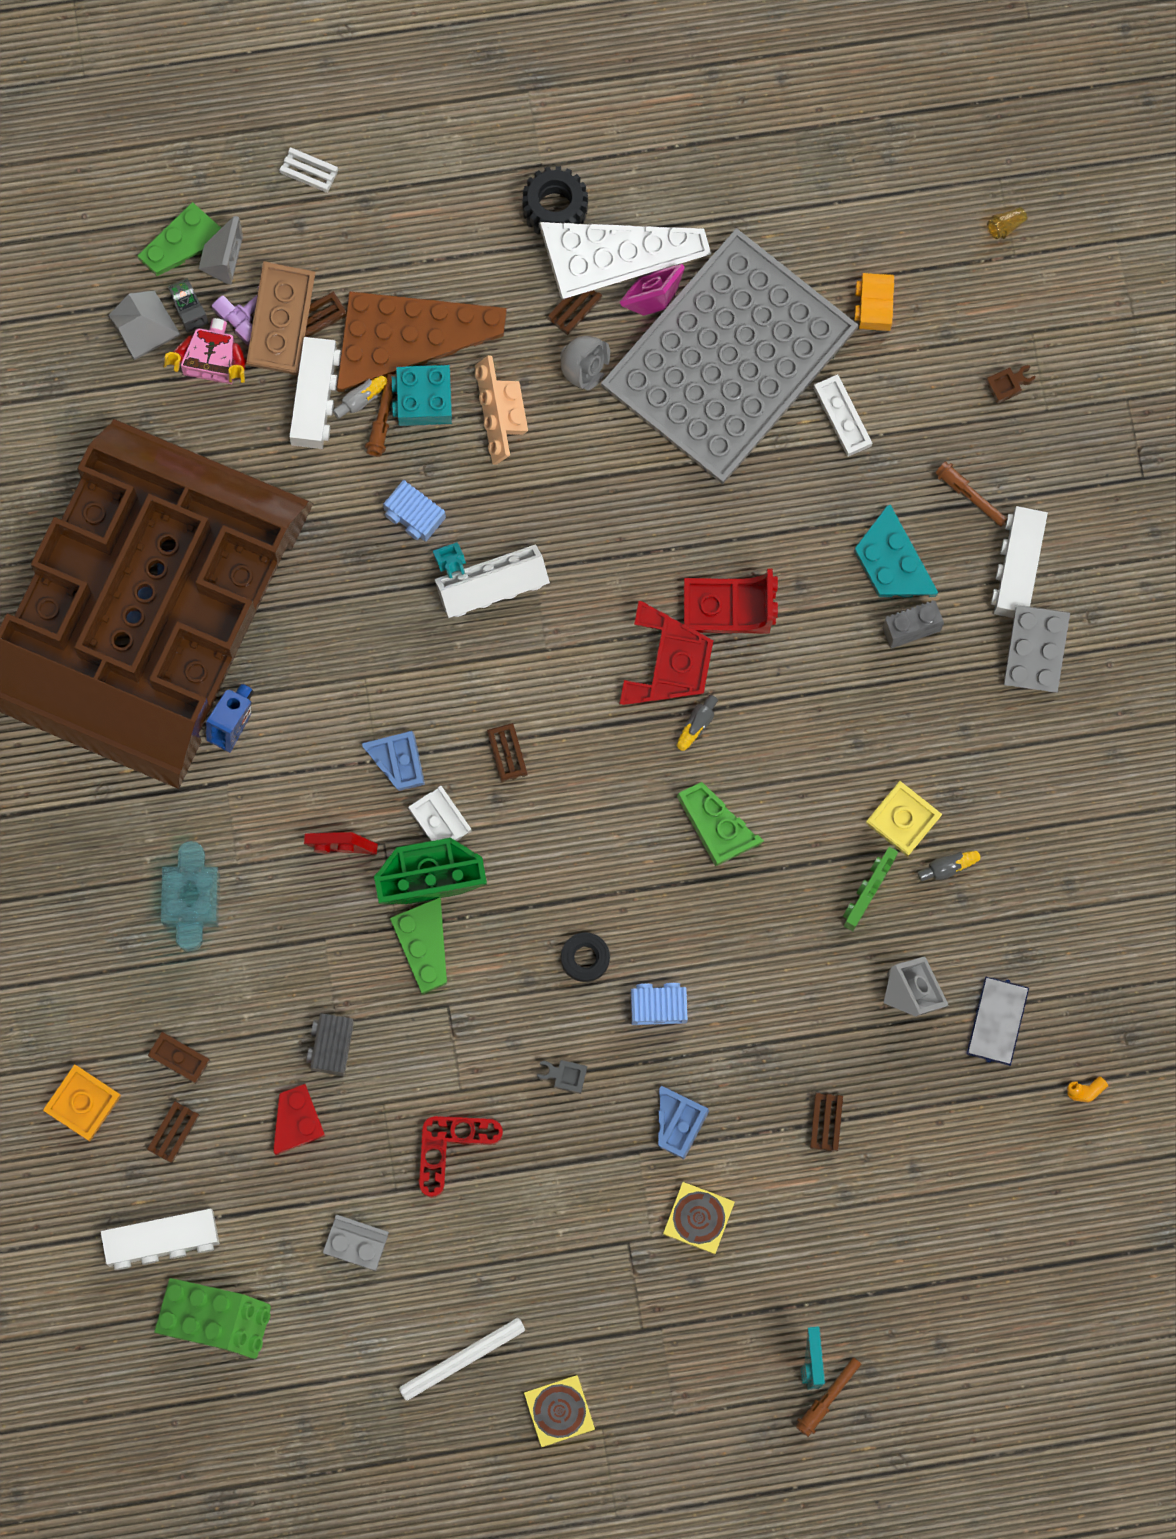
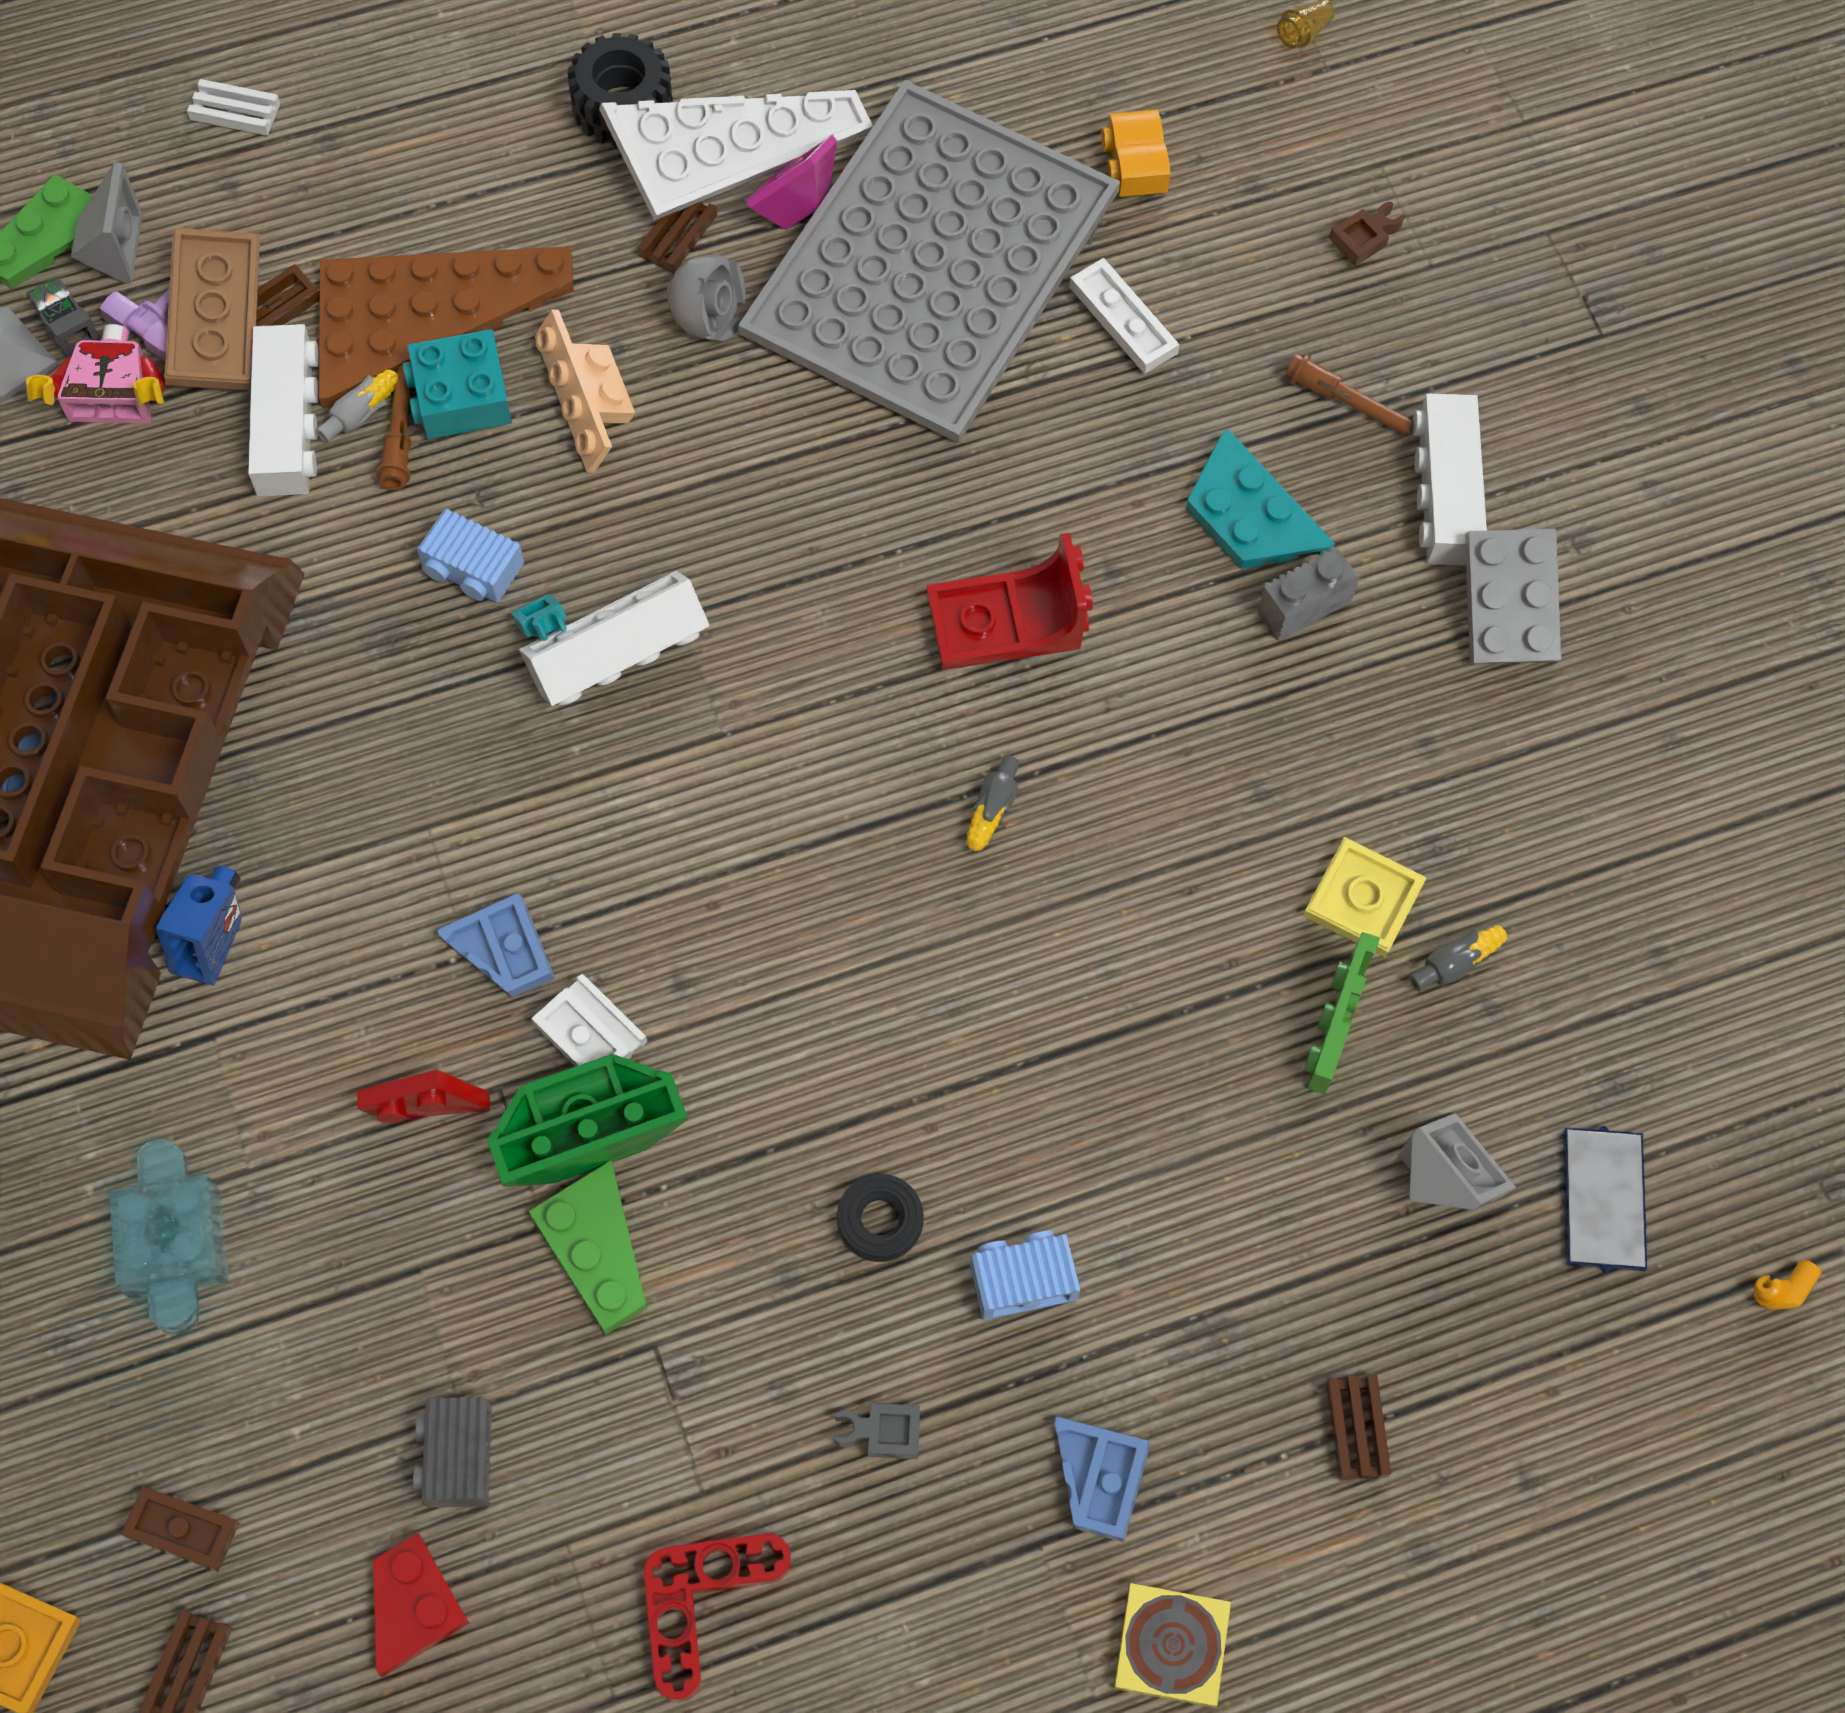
camera: 10 degrees left, 10 degrees down
(513, 774) = (701, 937): reddish brown tile -> none
(680, 661) = (946, 713): red wing -> none
(716, 826) = (1062, 964): bright green wing -> none

